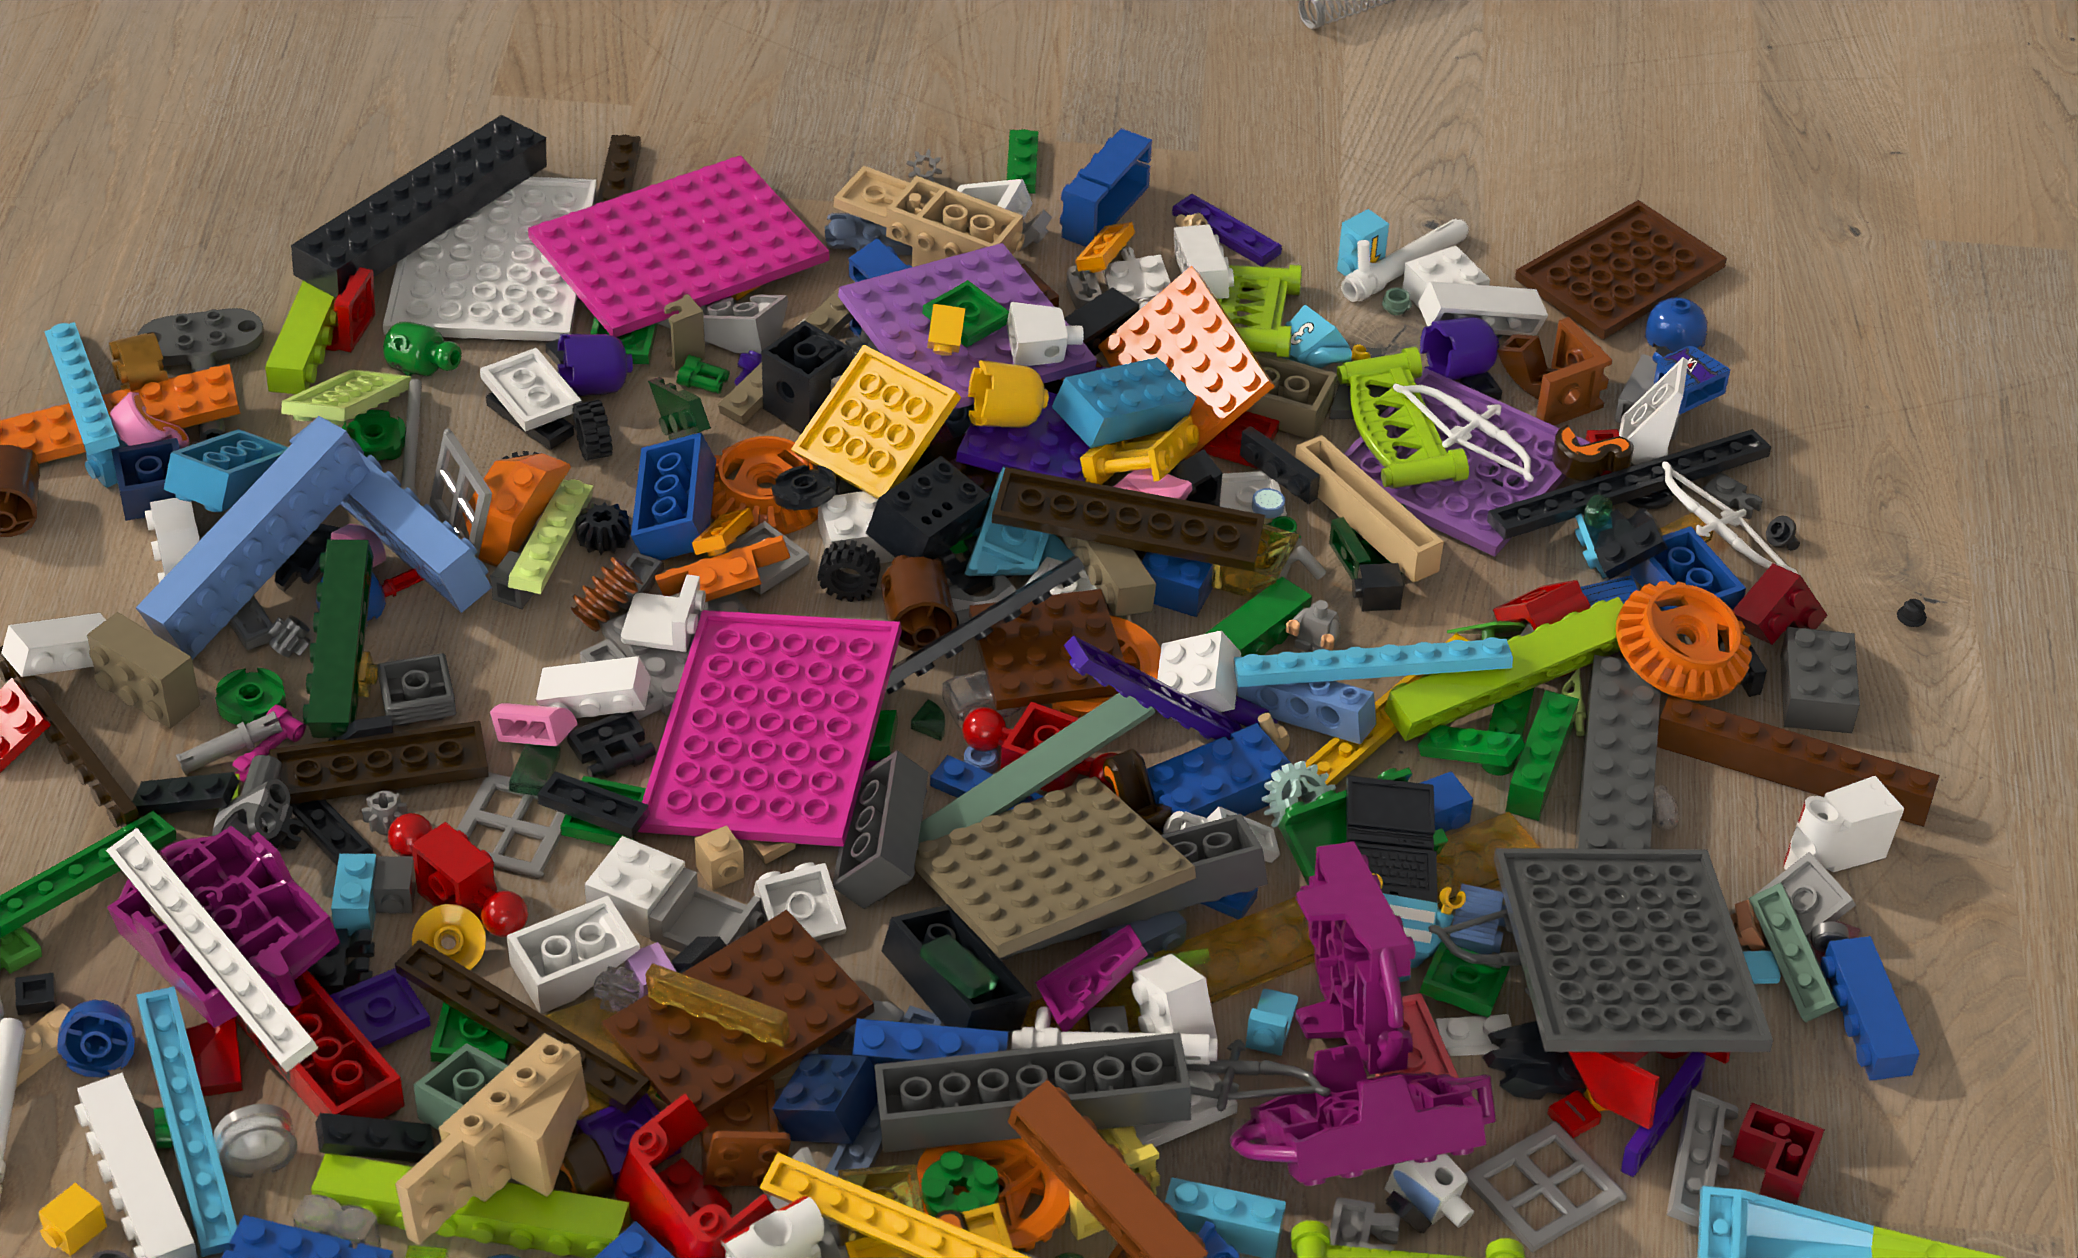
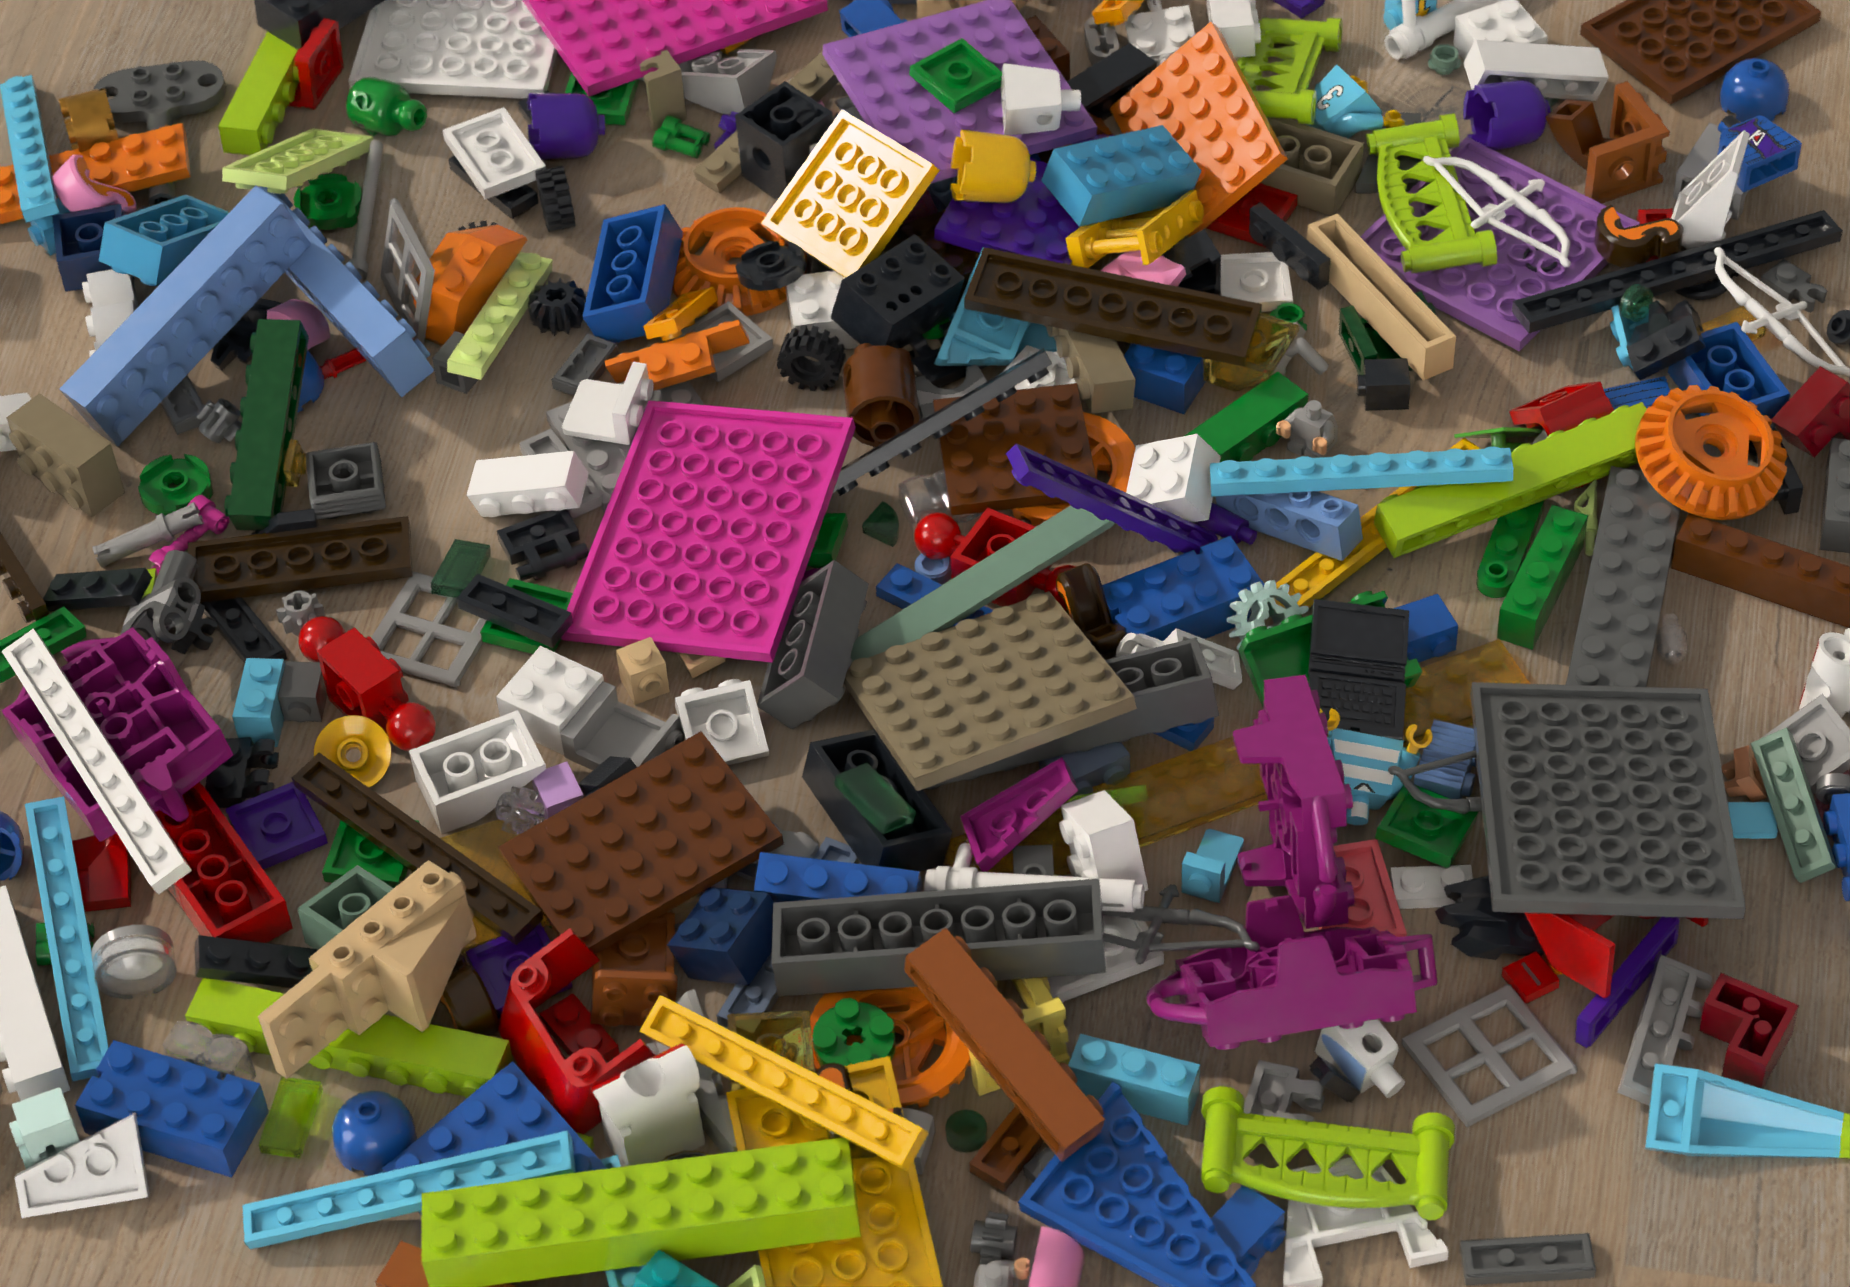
camera: 10 degrees right, 5 degrees up
(532, 724) = (461, 520): bright pink brick -> none
(605, 594) = (551, 381): dark orange piece -> none
(679, 410) = (647, 178): dark green wing -> none
(717, 1005) = (616, 833): clear yellow plate -> none
(945, 329) = (929, 94): yellow brick -> none
(1268, 502) = (1273, 288): tile -> none
(1276, 732) = (1251, 546): tan plate -> none
(1471, 745) = (1464, 565): green plate -> none
(1484, 384) = (1530, 156): black tile -> none

